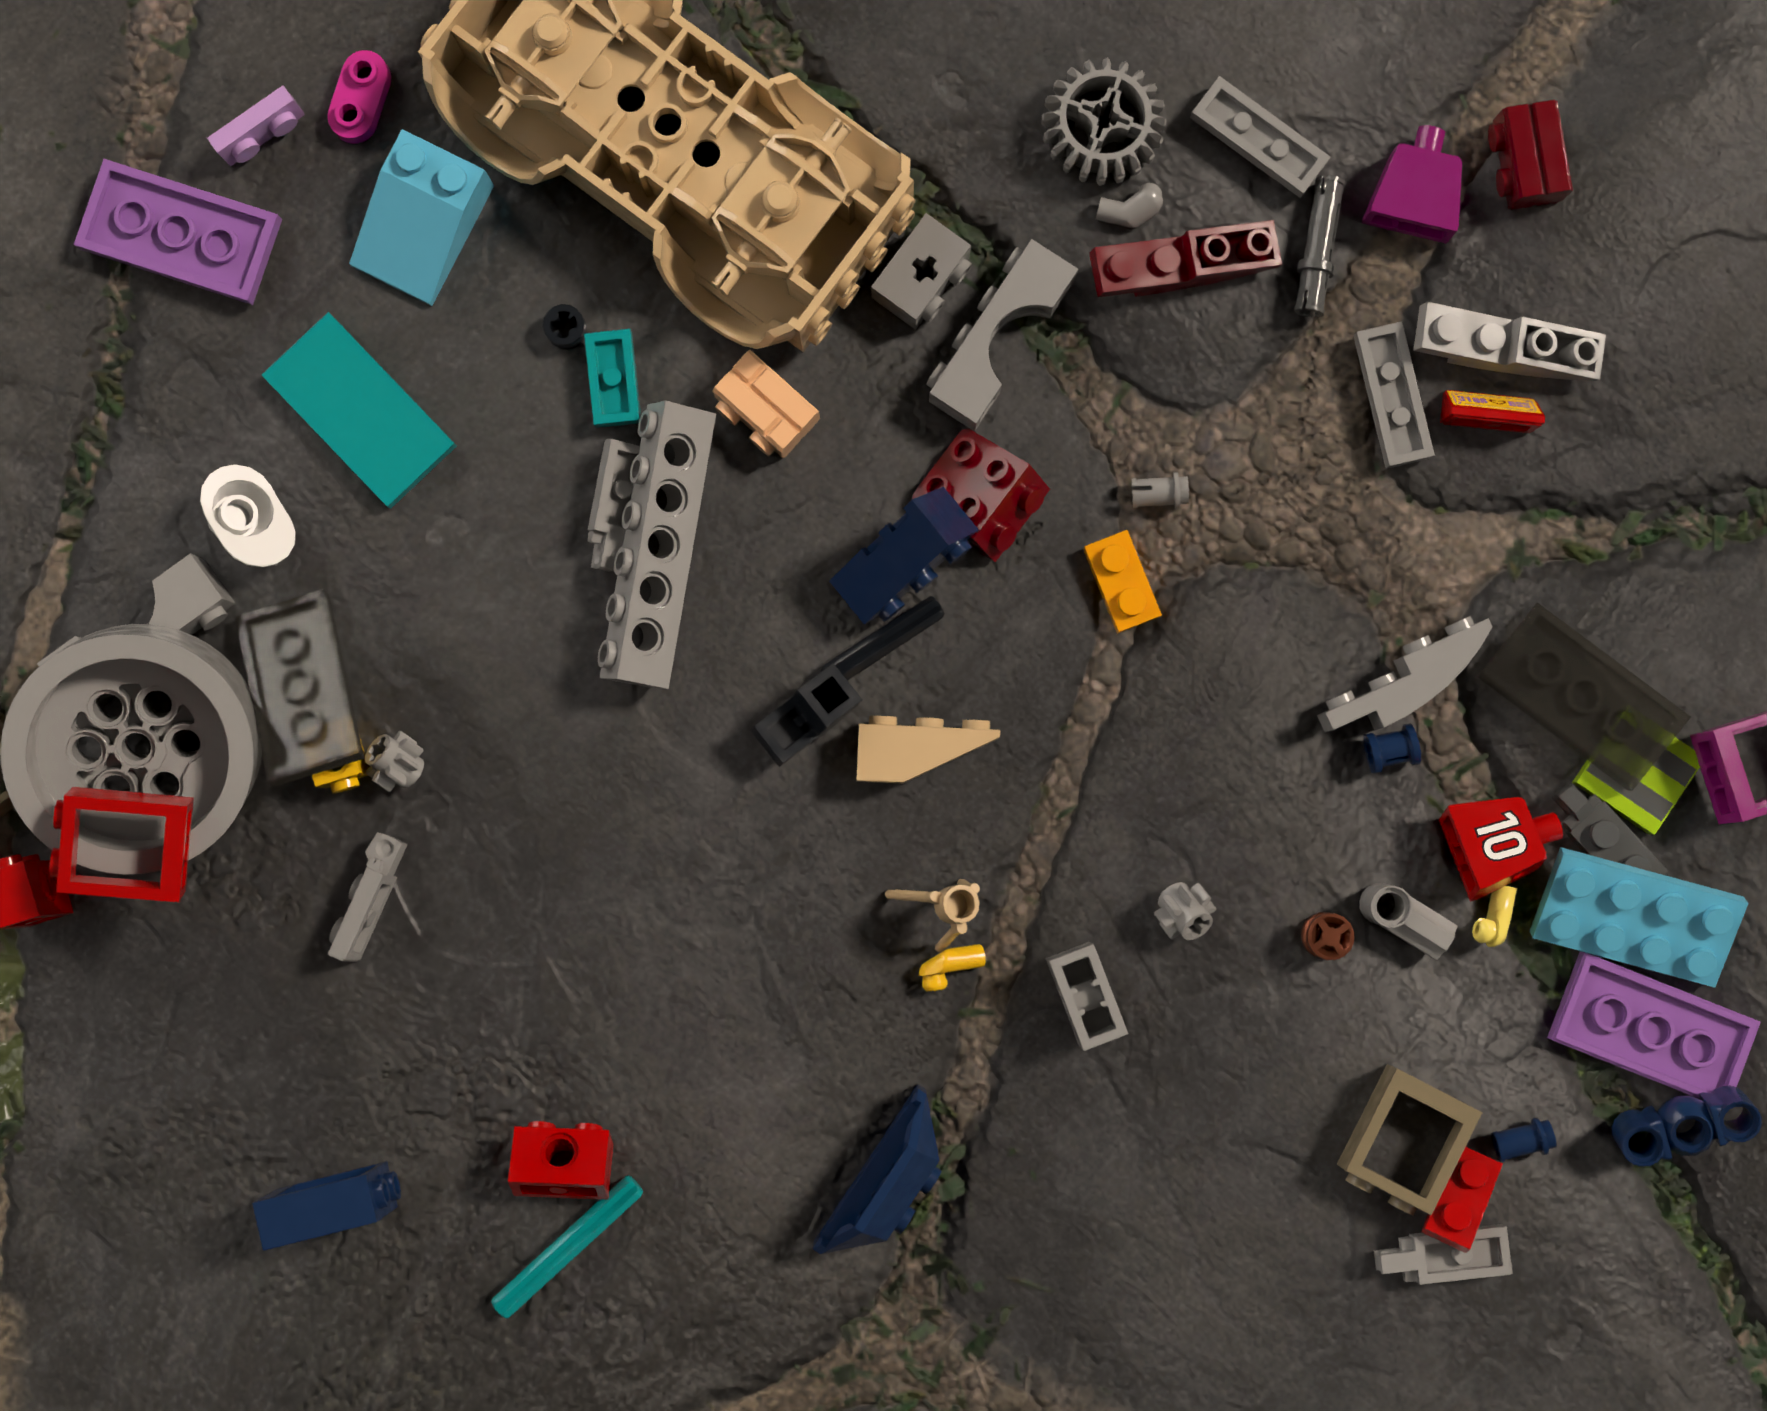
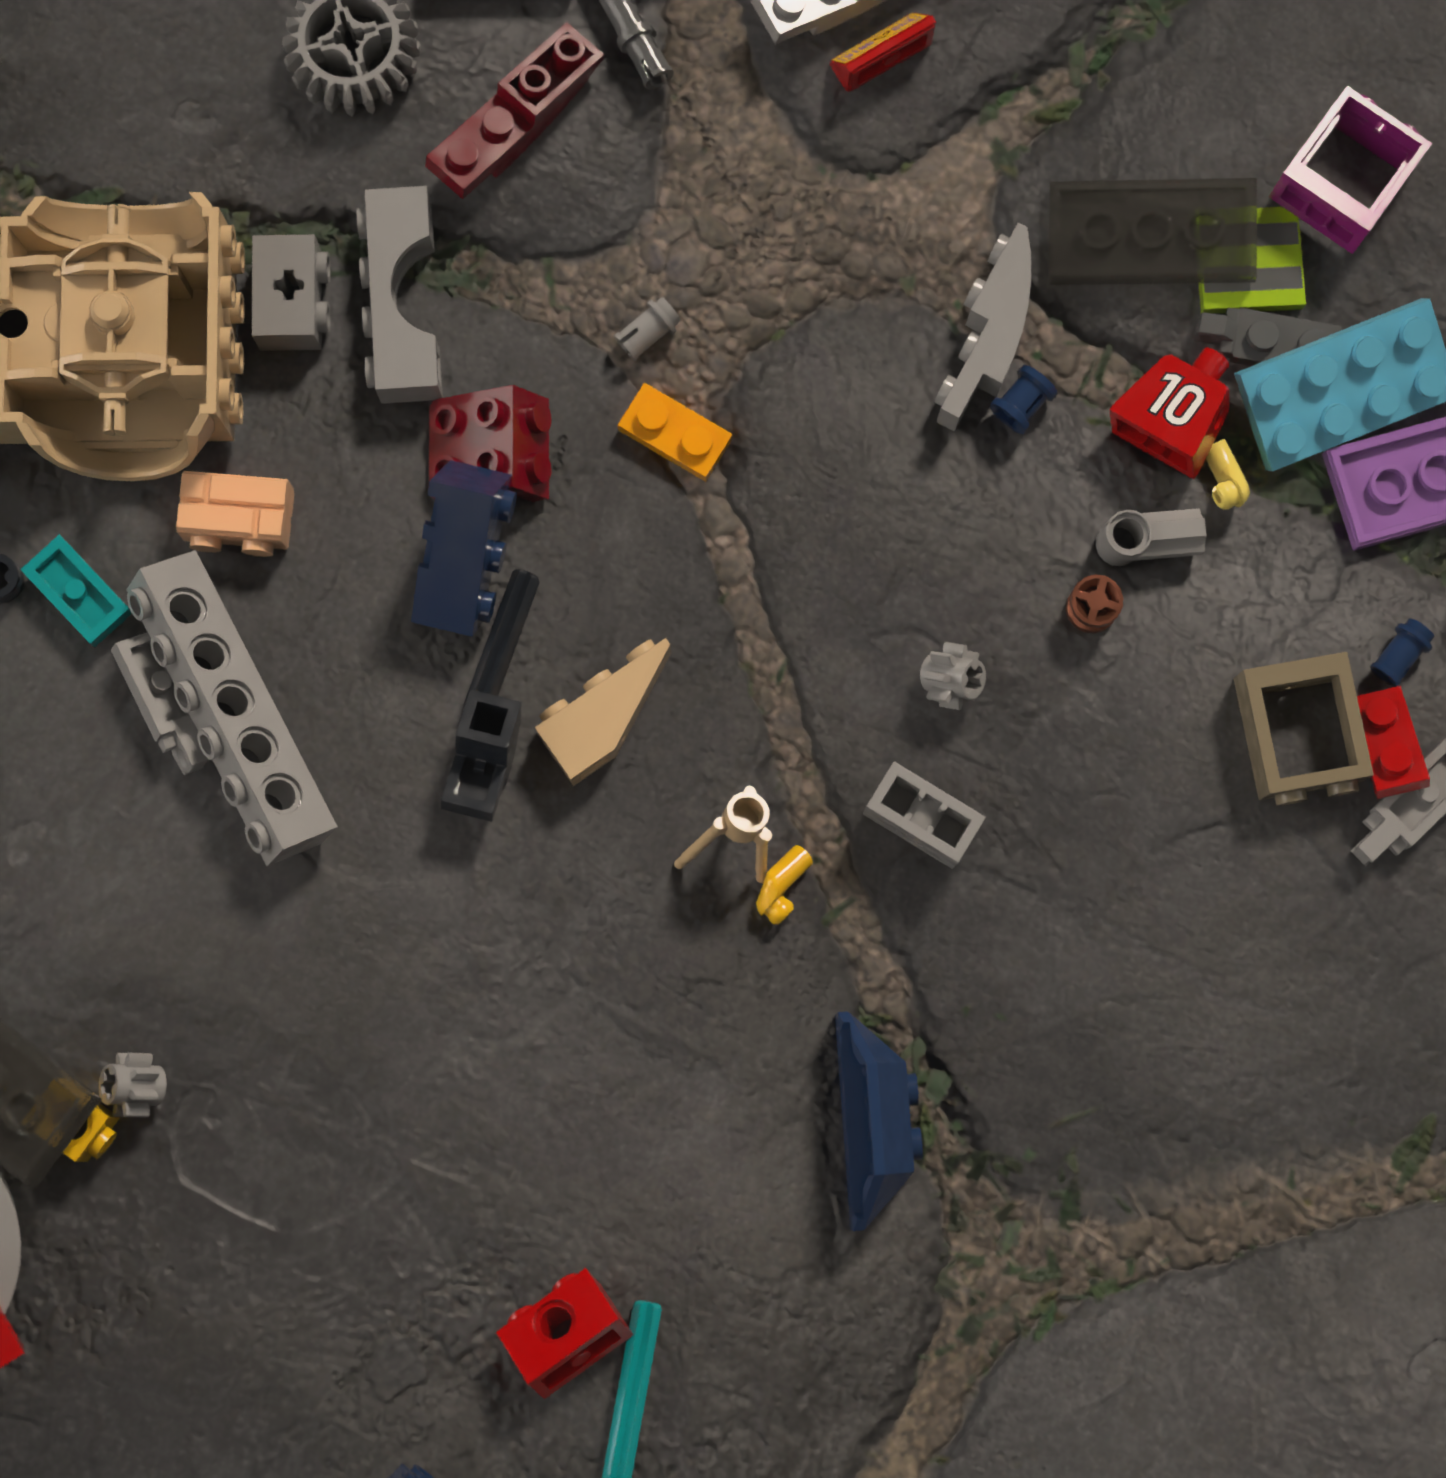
camera: 45 degrees left, 5 degrees down
(368, 899) = (202, 1230): light grey hinge -> none
(1133, 211) = (437, 105): light grey arm -> none
(1393, 395) = (788, 95): light grey plate -> none

